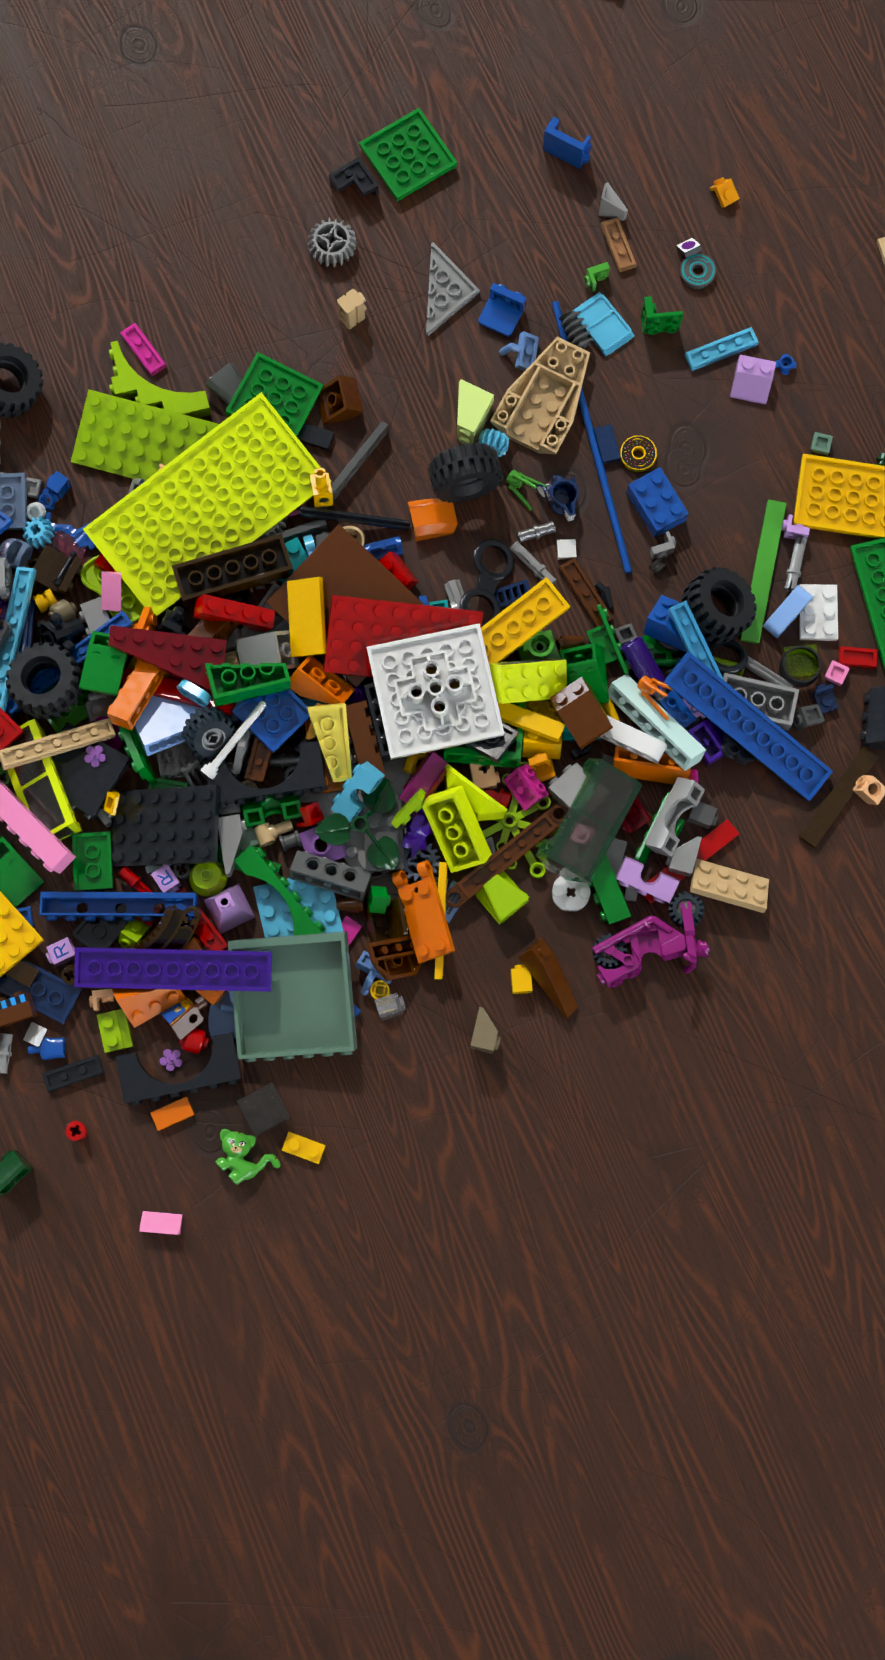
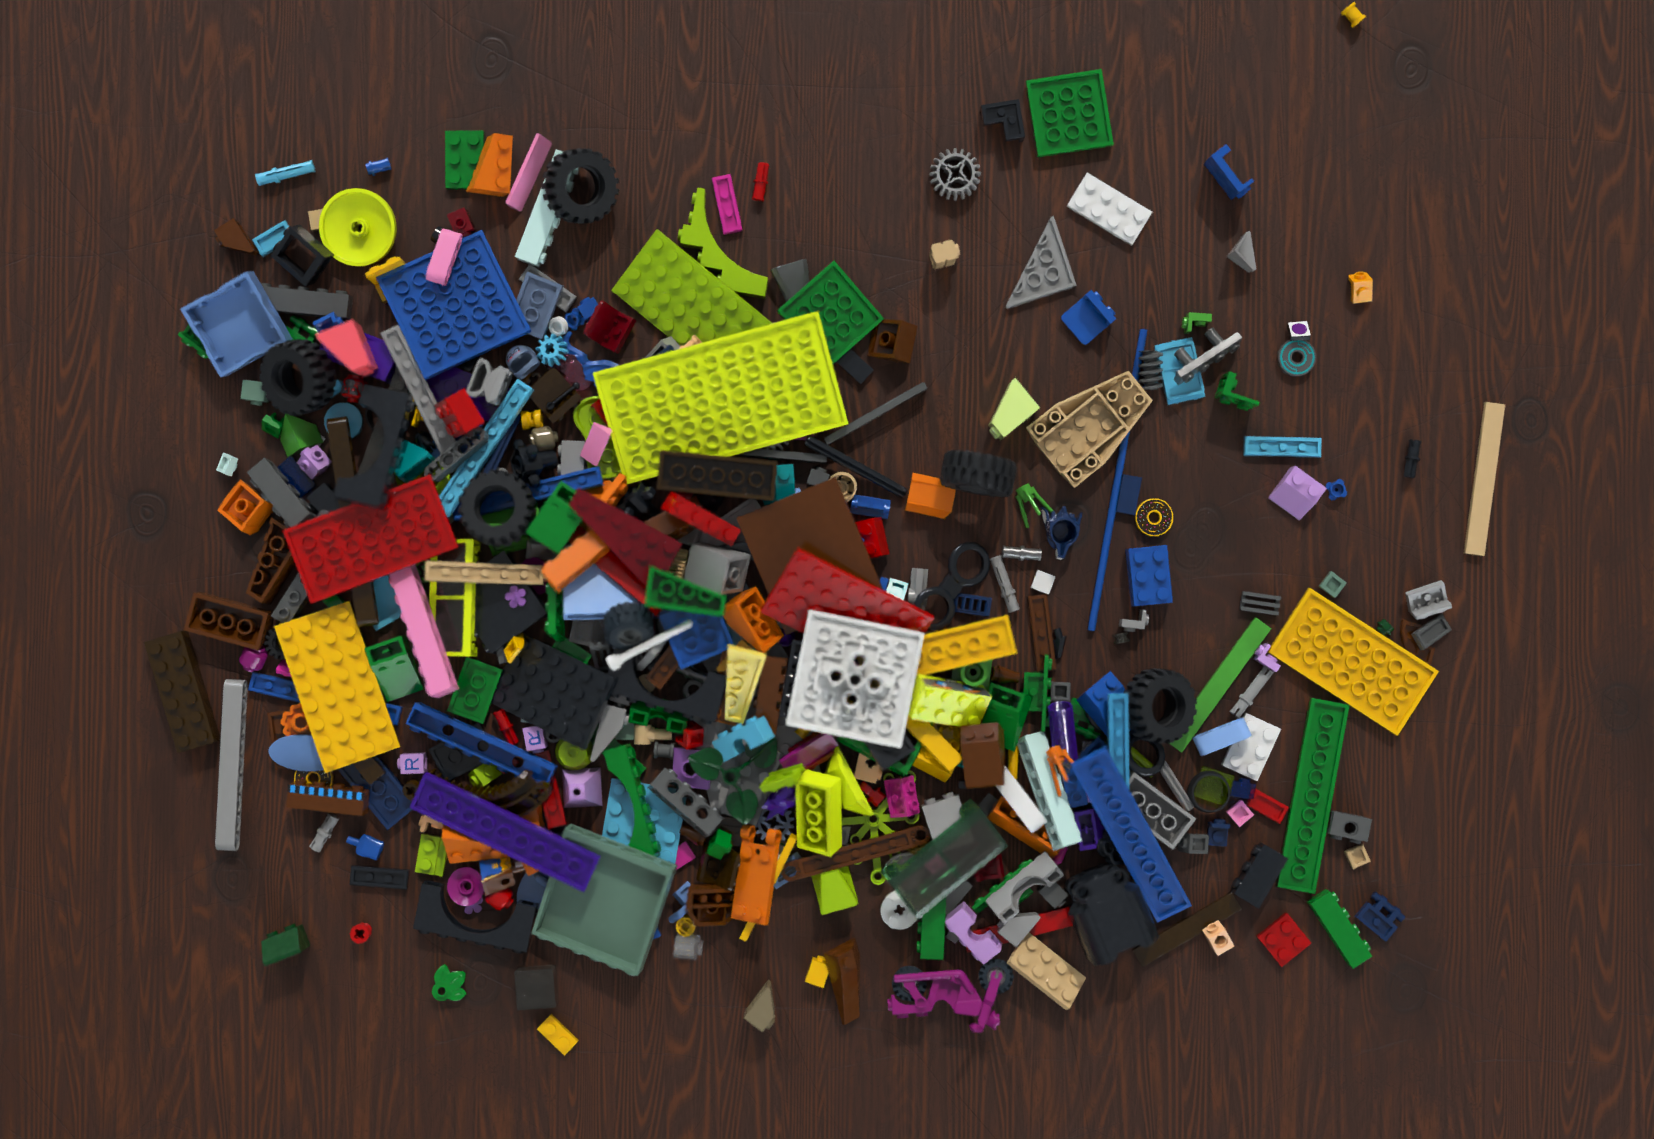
camera: 30 degrees right, 10 degrees up
(35, 1034) = (358, 828): white tile -> none
(81, 491) = (609, 327): none -> dark red bracket
(150, 1040) = (457, 886): none -> magenta dish
(161, 1223) = (403, 1046): bright pink slope -> none
(165, 318) = (760, 181): none -> red axle
(172, 1113) = (453, 952): orange tile -> none
(180, 1142) = (450, 982): none -> green plate
(194, 693) = (630, 583): medium azure beam -> none
(236, 1146) = (497, 1009): bright green animal -> none
(306, 617) = (766, 553): yellow tile -> none
(309, 543) = (801, 475): medium azure beam -> none
(321, 488) = (835, 428): yellow bracket -> none
(478, 217) = (1109, 209): none -> white plate
(496, 439) = (1020, 449): medium azure gear -> none
(525, 350) = (1092, 368): medium blue plate -> none
(543, 766) = (925, 784): light orange bracket -> none
(618, 244) = (1232, 296): medium nougat tile -> none
(626, 294) = (1202, 363): none -> dark grey plate
(761, 805) = (1108, 913): none -> black piece
(781, 482) = (1276, 605): none -> dark grey tile
(829, 649) = (1243, 789): none -> clear blue plate
(838, 311) = (1412, 458): none -> black axle

